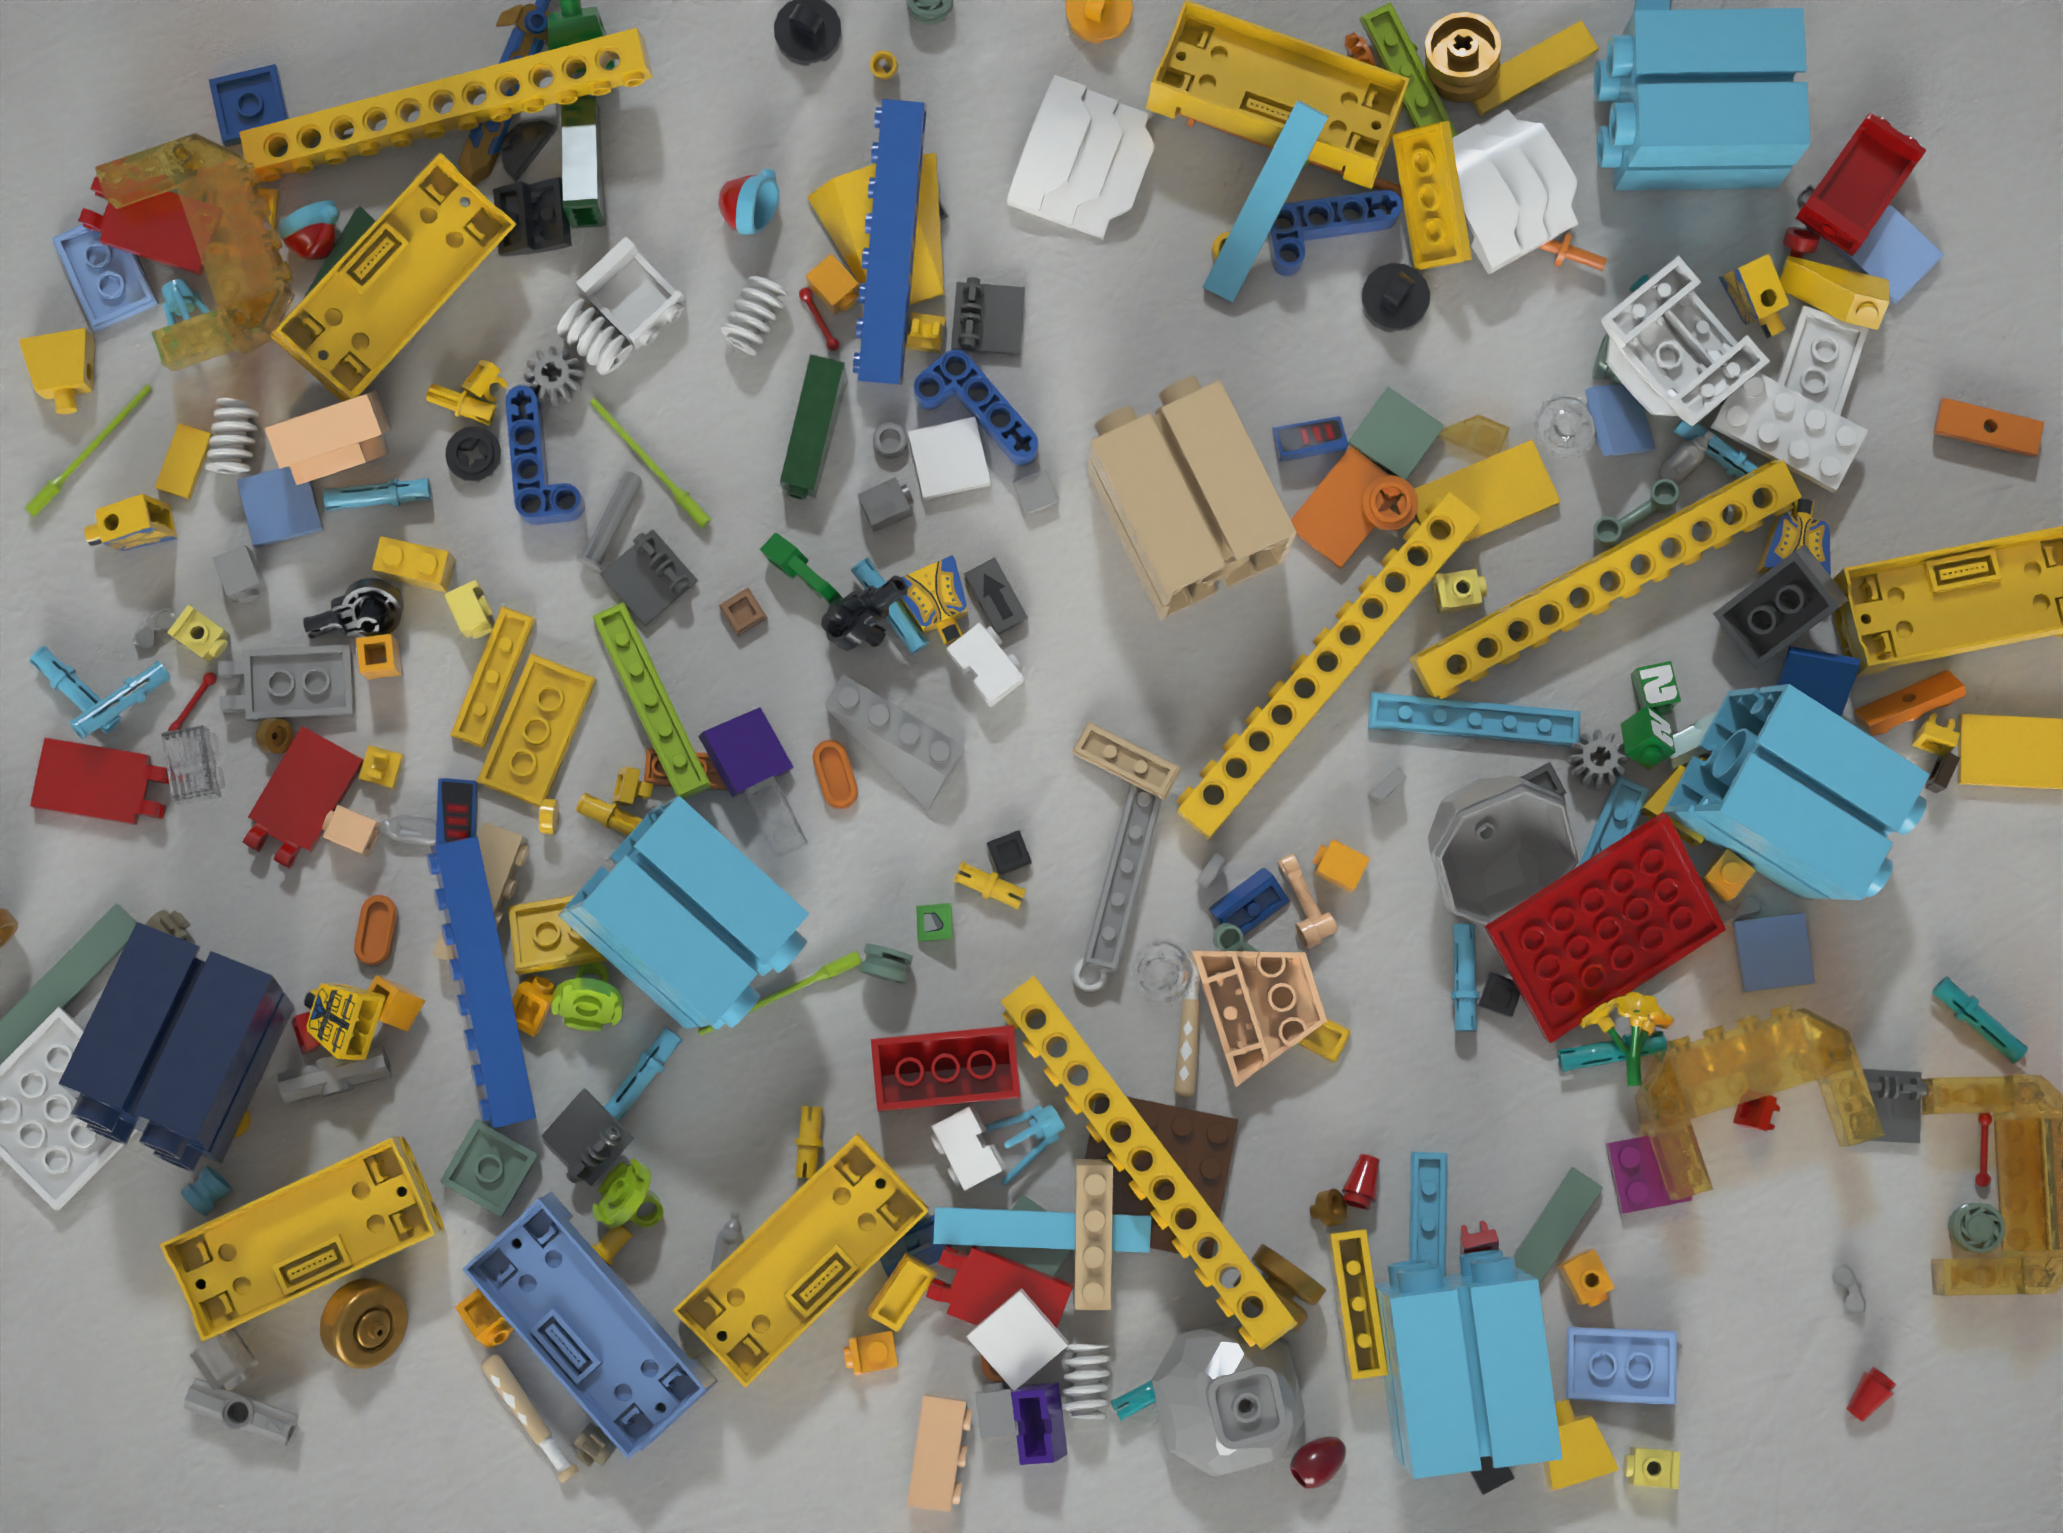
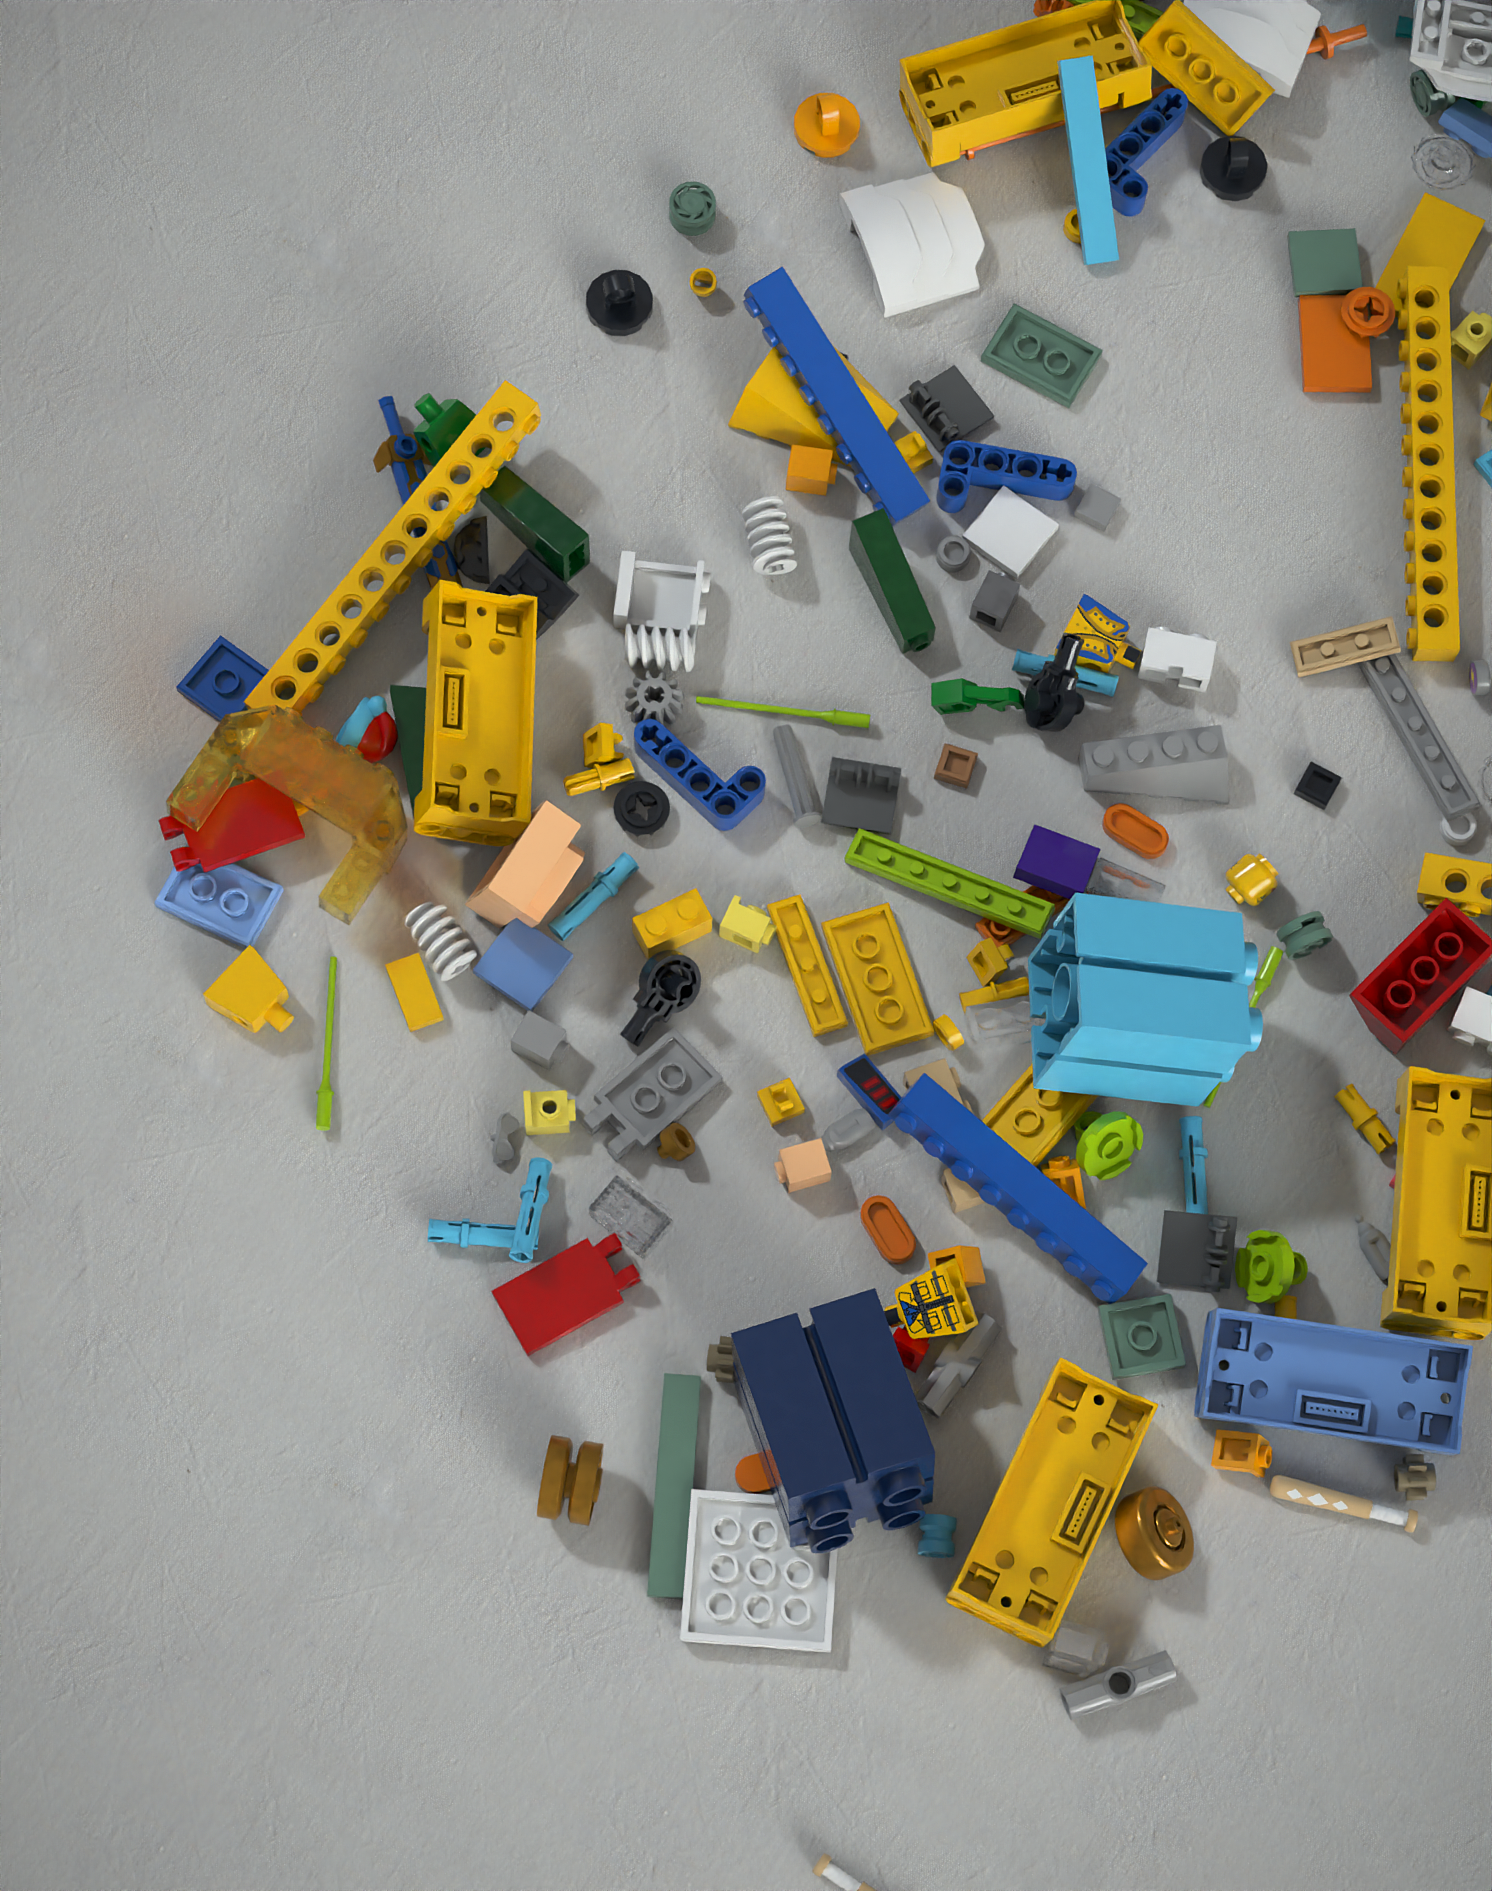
camera: 40 degrees left, 10 degrees down
(132, 524) = (421, 1053): yellow torso -> none
(181, 300) = (304, 870): medium azure plant -> none
(208, 679) = (583, 1143): red hinge -> none
(301, 794) = (737, 1171): red tile -> none
(379, 656) = (709, 1013): light orange brick -> none
(749, 202) = (690, 456): medium azure piece -> none
(806, 296) = (793, 497): red hinge -> none
(886, 886) = (1251, 879): none -> yellow head
(934, 922) = (1311, 878): bright green slope -> none
(990, 885) = (1326, 819): yellow pin -> none
(996, 596) = (1137, 604): dark grey tile -> none
(1102, 333) = (1041, 355): none -> sand green tile
(1188, 495) = (1226, 408): tan brick -> none
(1310, 439) = (1264, 314): slope -> none
(1477, 435) = (1383, 220): clear yellow tile -> none

